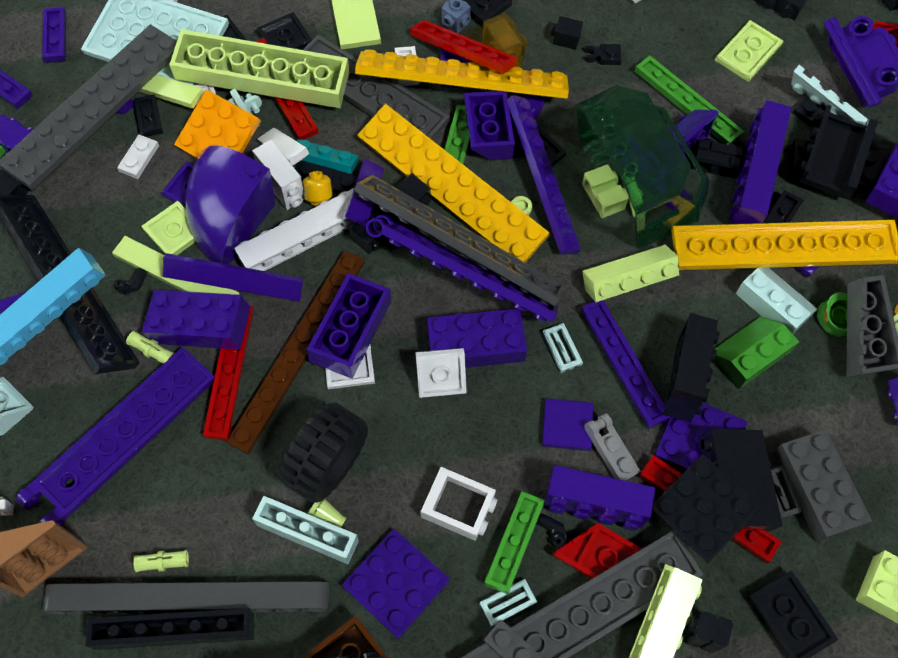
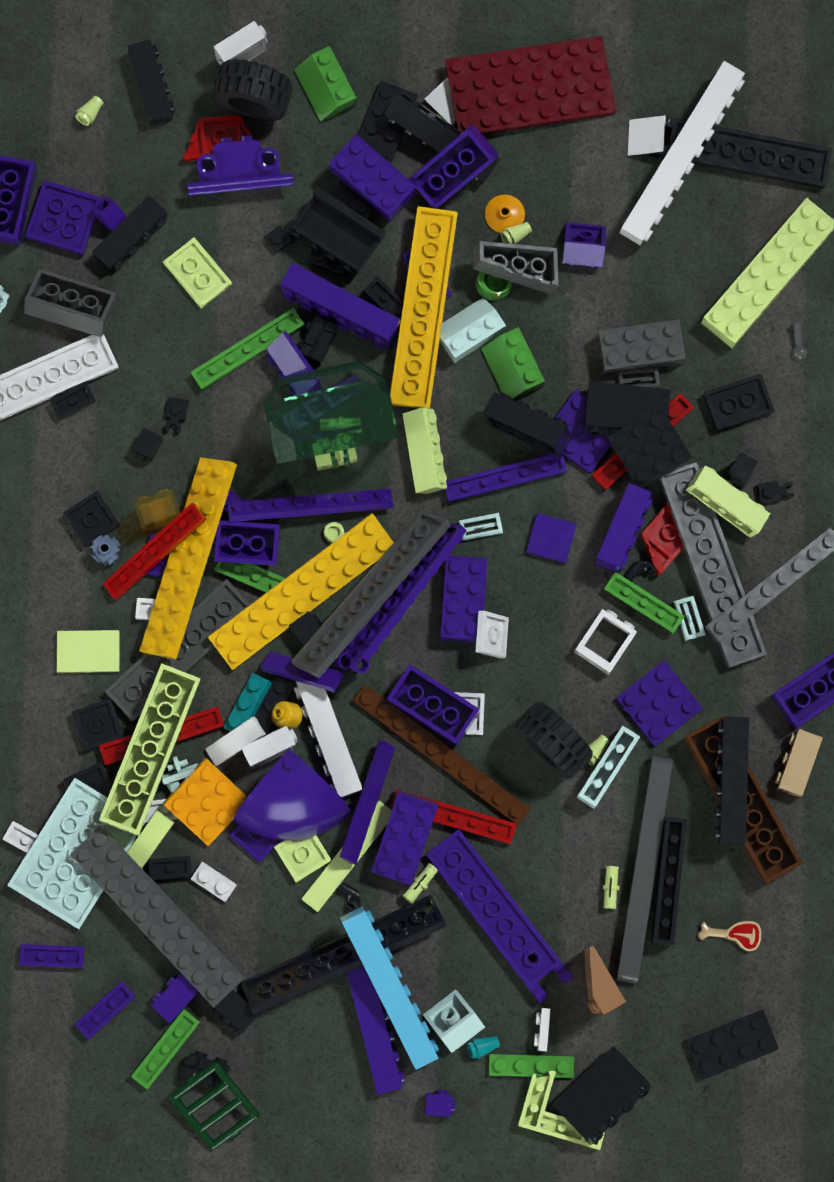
camera: 80 degrees left, 15 degrees up
(611, 448) = (580, 506): light grey plate -> none
(812, 88) = (272, 221): light aqua wing -> none

